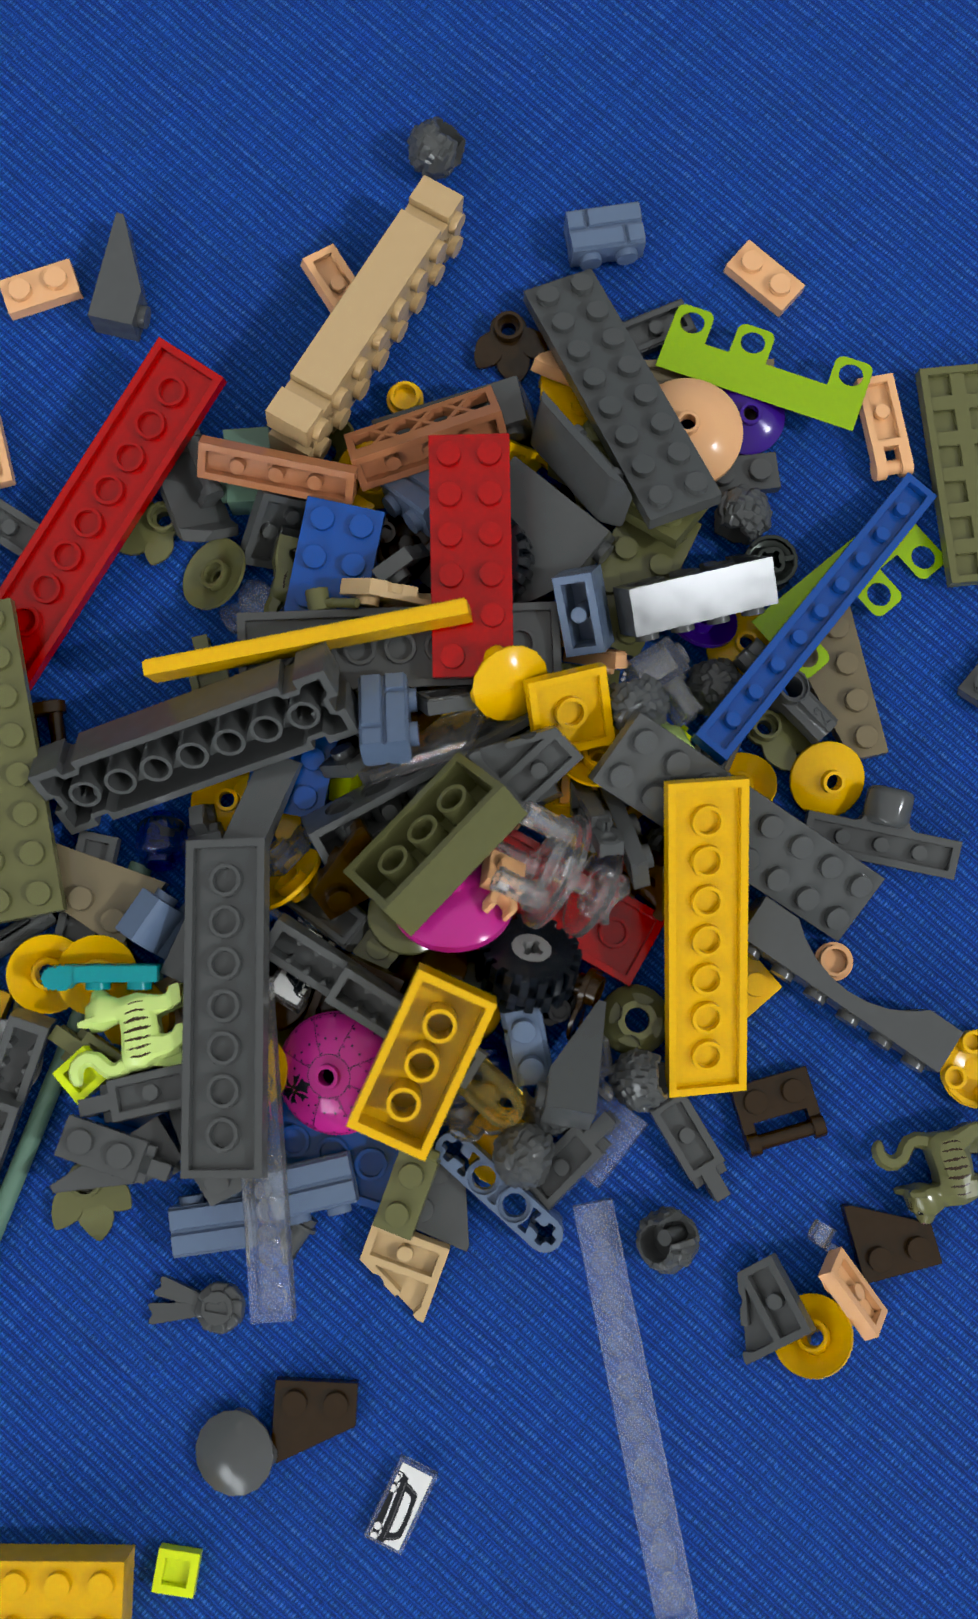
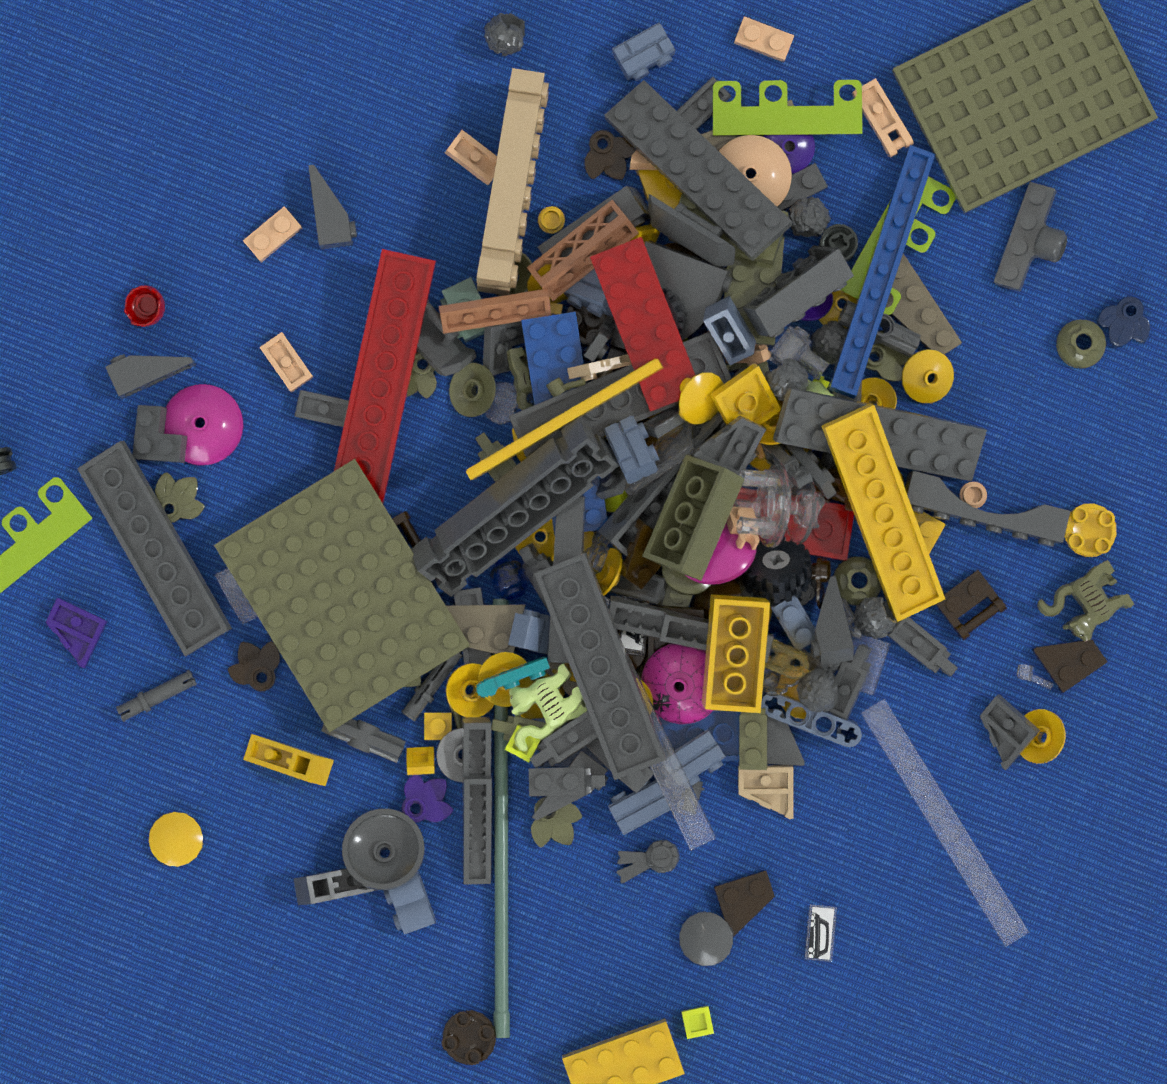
camera: 15 degrees left, 5 degrees up
(667, 1240) = (927, 710): dark grey piece -> none
(853, 1293) = (1056, 700): light nougat plate -> none
(885, 836) = (978, 400): dark grey plate -> none

